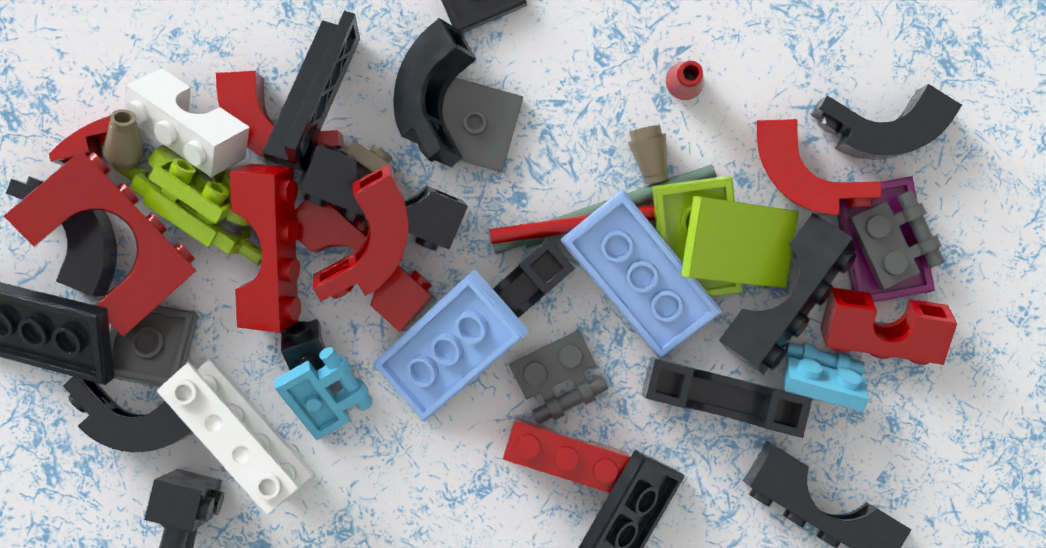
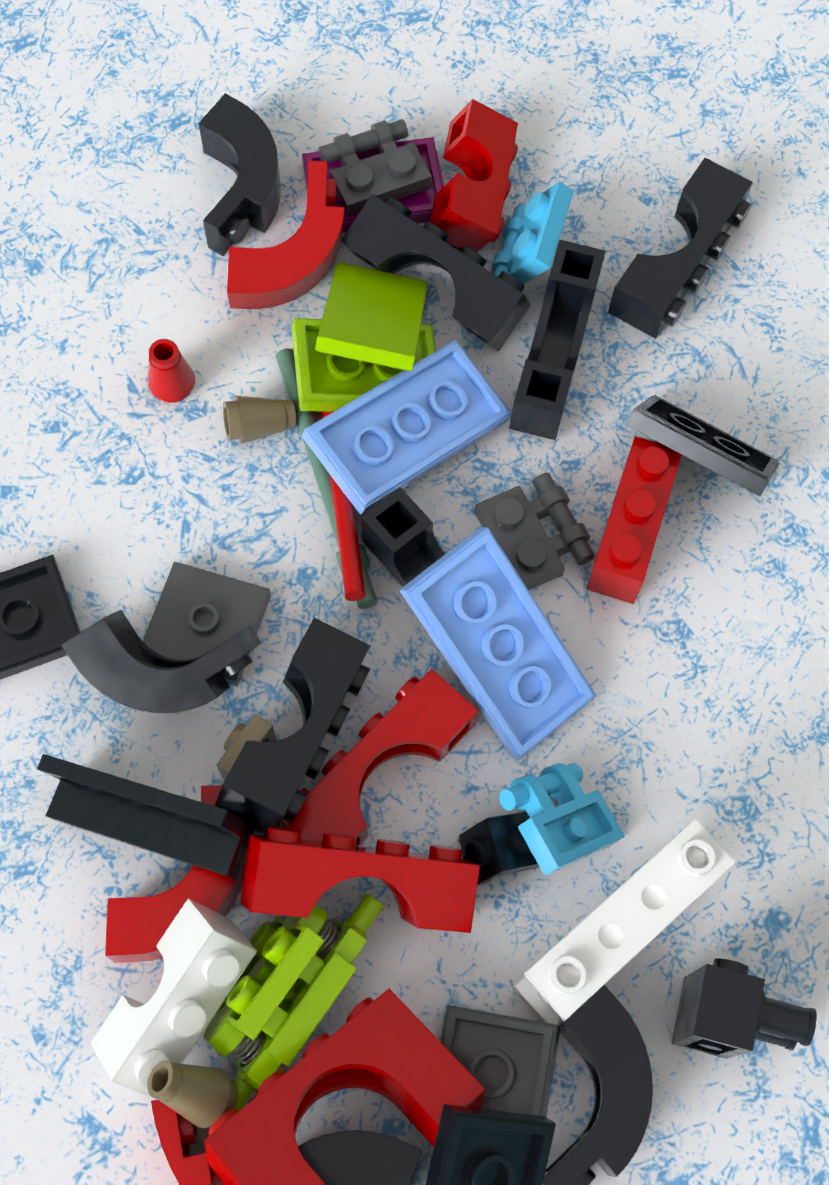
camera: 95 degrees left, 20 degrees down
(384, 245) = (361, 711): red arch -> none

